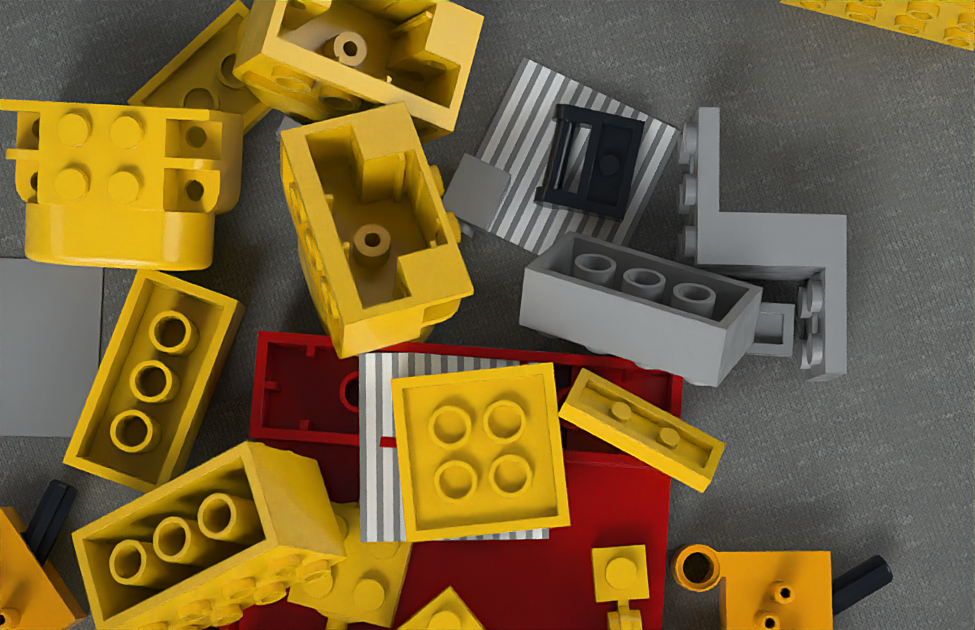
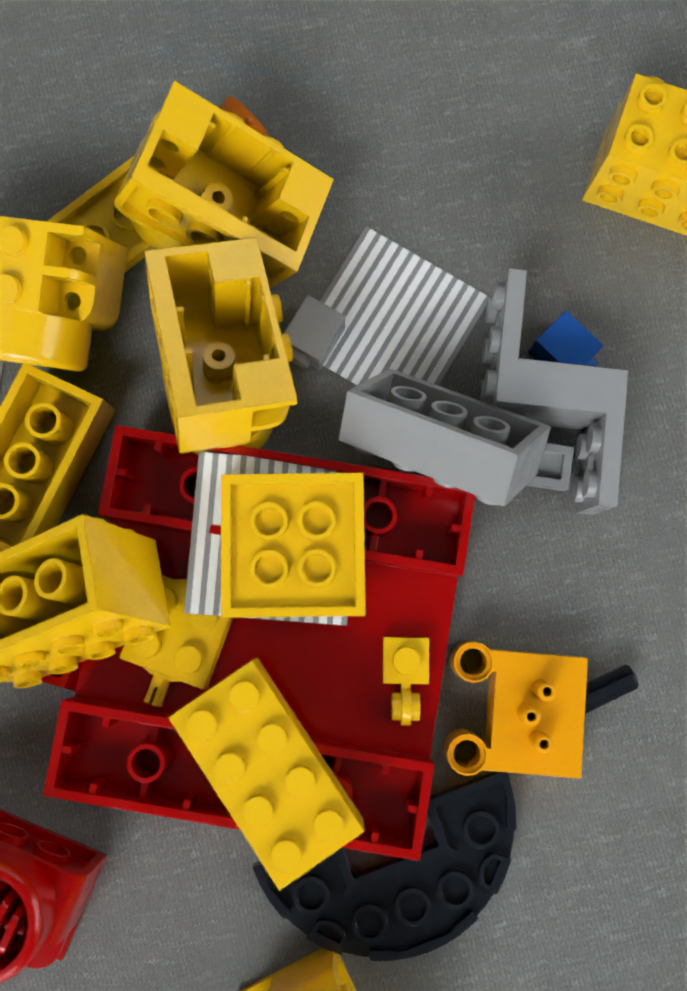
camera: 10 degrees right, 0 degrees up
(606, 165) = (425, 320): black plate -> none
(642, 430) = (436, 539): yellow plate -> none
(776, 185) = (567, 343): none -> blue brick

